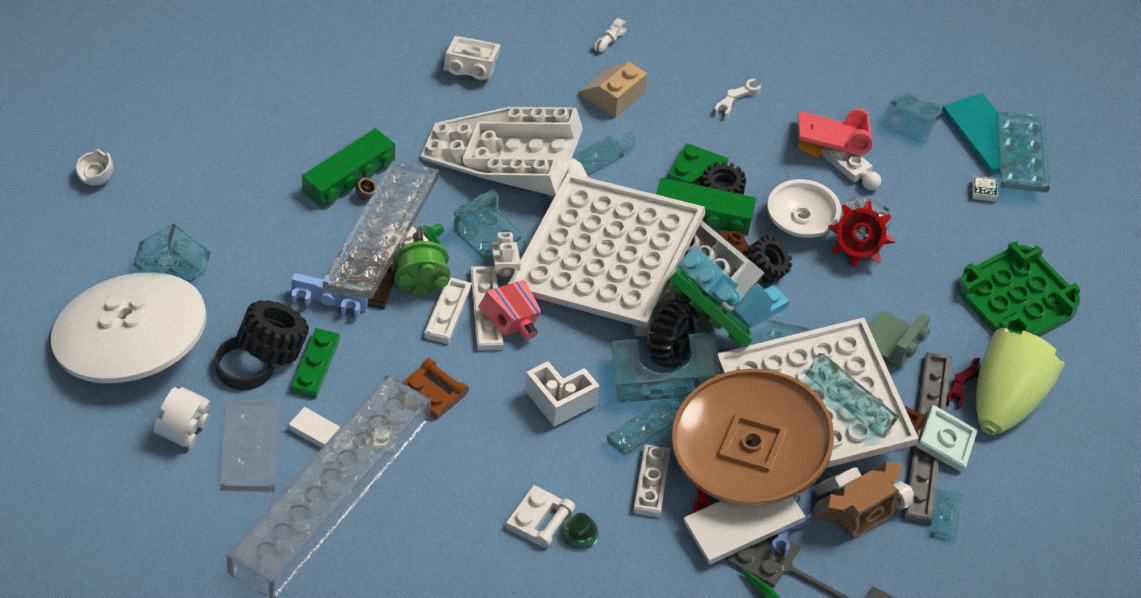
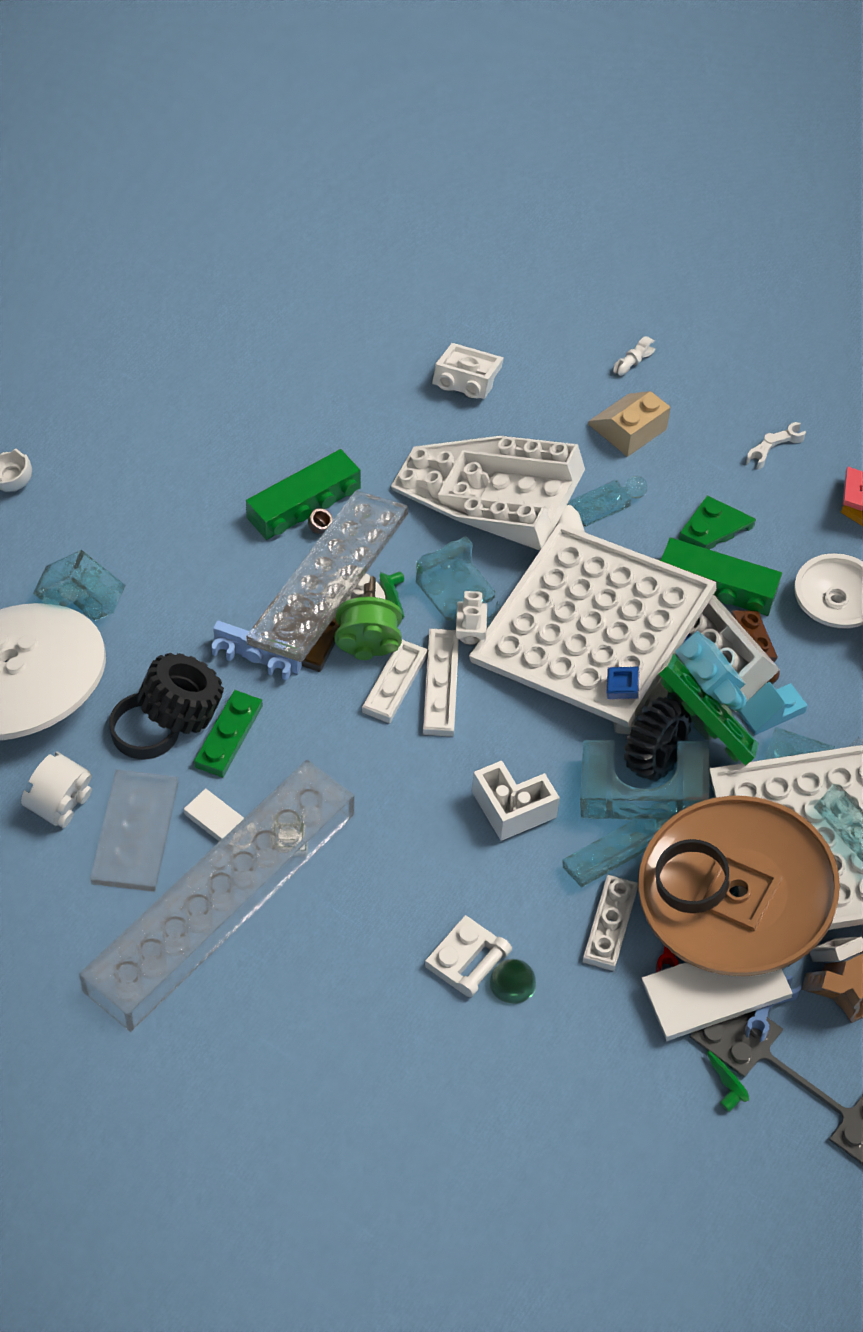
camera: 10 degrees right, 5 degrees up
(440, 400) = (354, 779): dark orange plate -> none
(512, 309) = (469, 688): coral torso -> none
(638, 292) = (623, 683): none -> blue tile
(715, 455) = (692, 845): none -> black tyre
(726, 174) = (749, 538): black tyre -> none
(777, 255) = (797, 643): black tyre -> none

